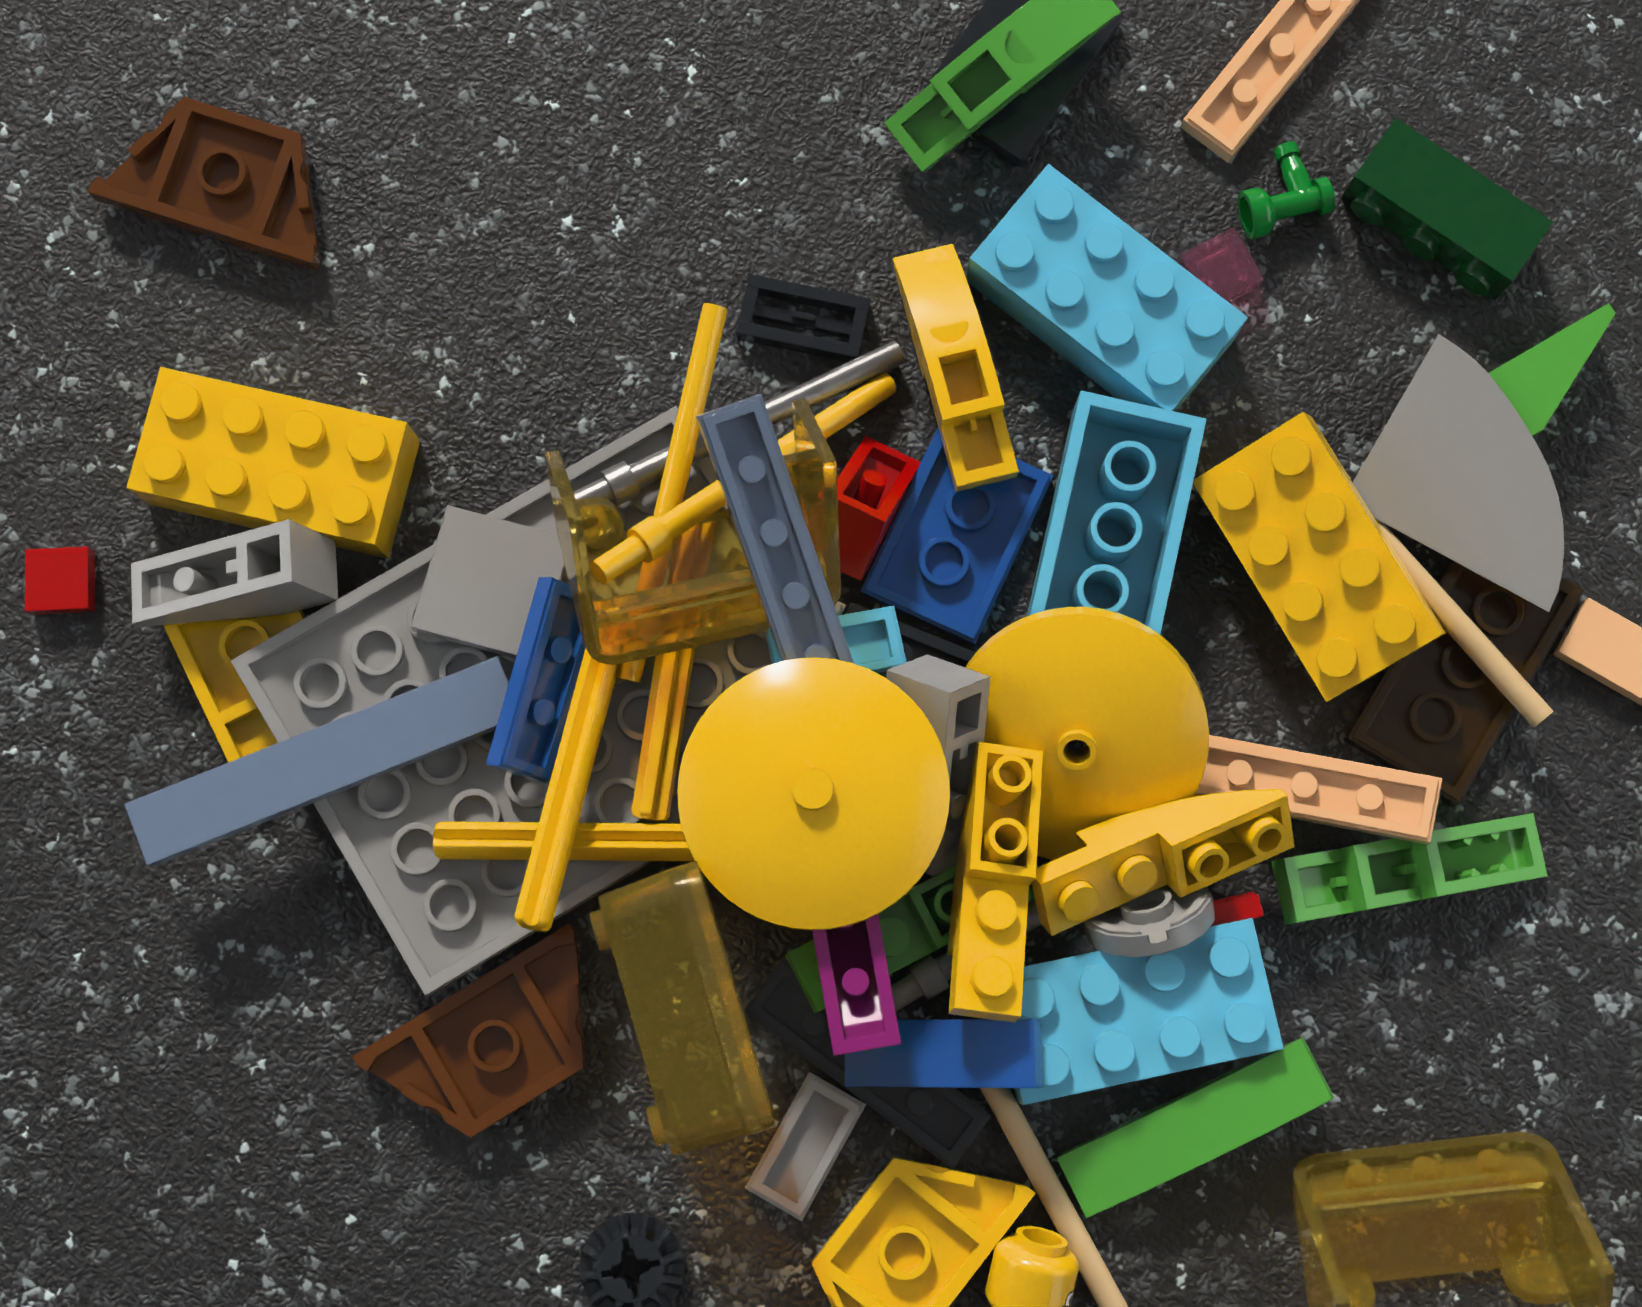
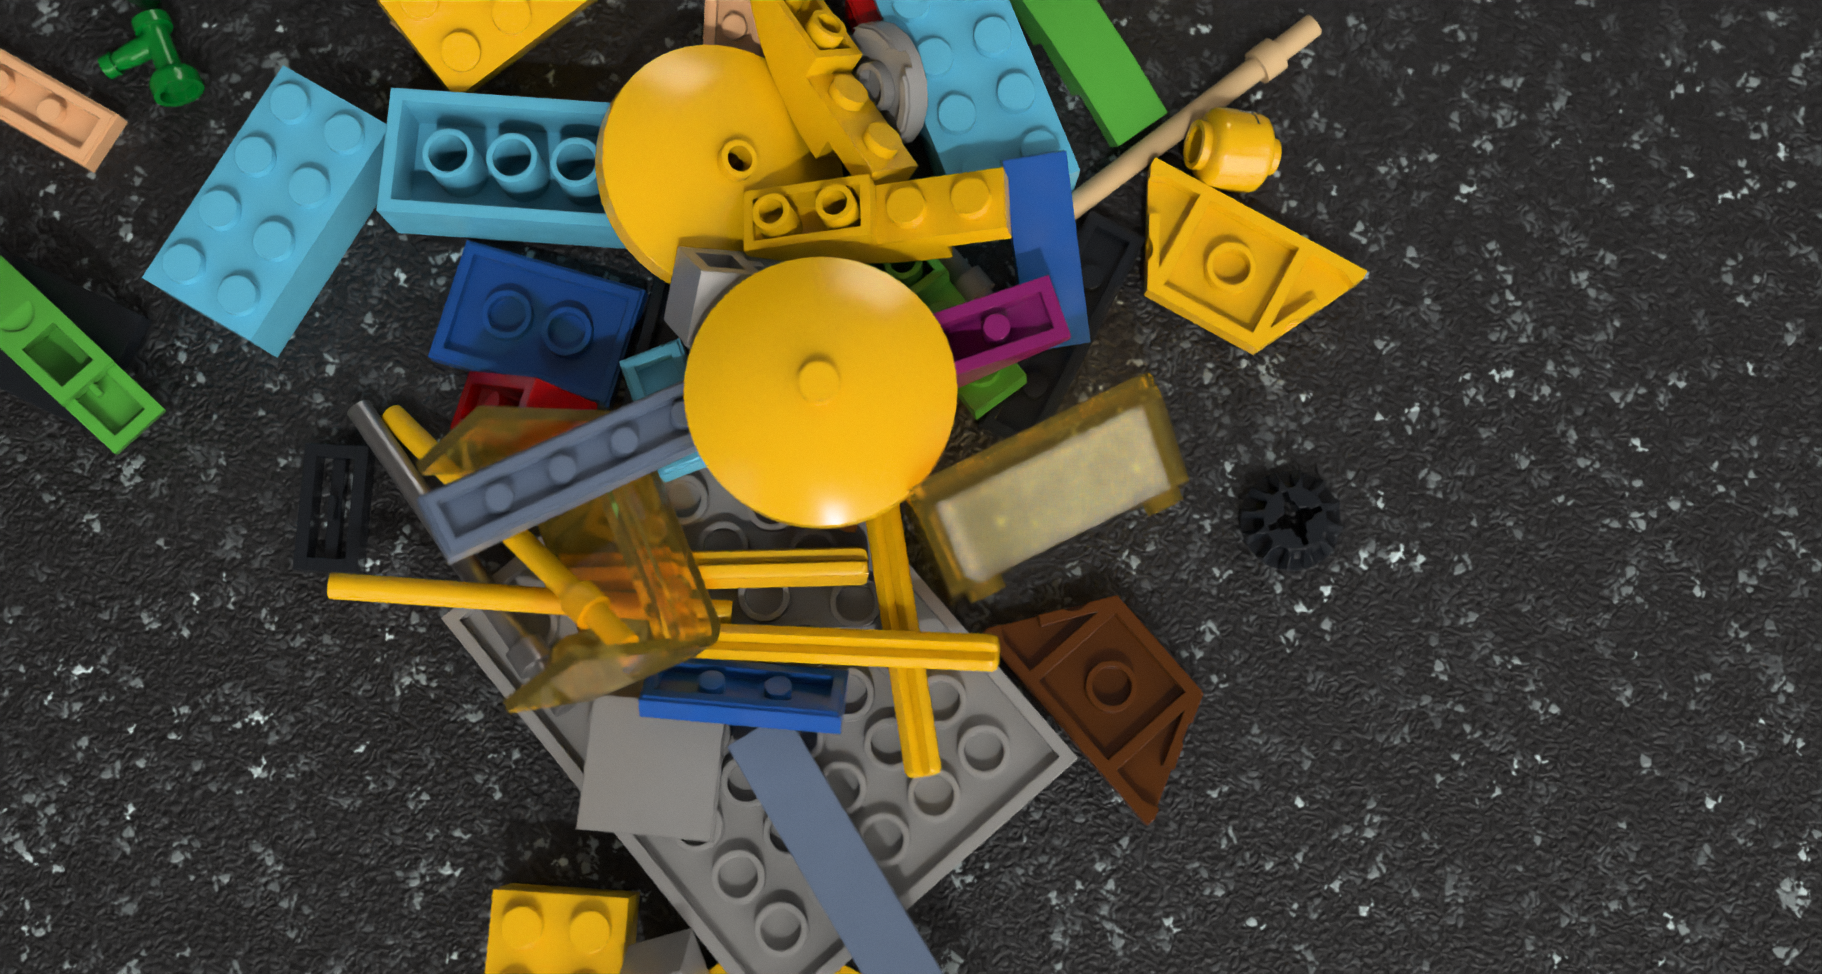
camera: 105 degrees left, 0 degrees up
(805, 1146) = (1181, 379): light grey tile -> none
(956, 366) = (362, 341): yellow slope -> none
(1223, 265) = (230, 105): clear pink tile -> none

